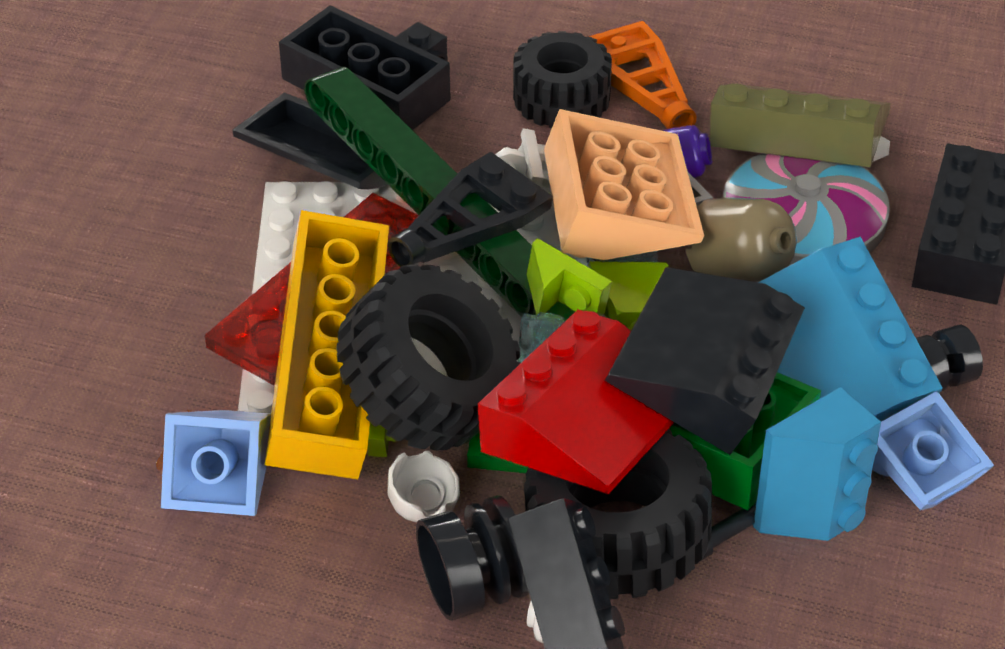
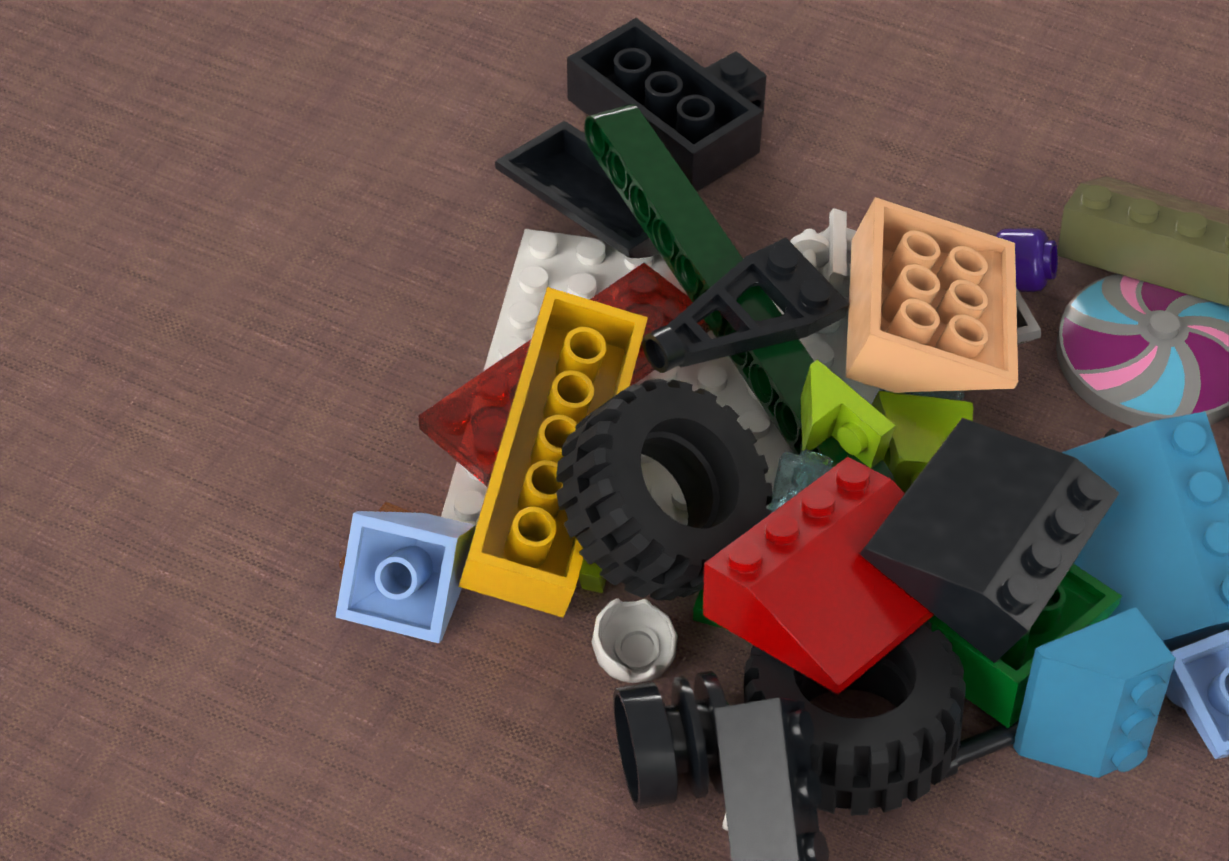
camera: 10 degrees right, 5 degrees up
(561, 74) = (895, 145): black tyre -> none
(632, 44) = (986, 108): orange plate -> none
(743, 239) = (1067, 388): dark tan cylinder -> none

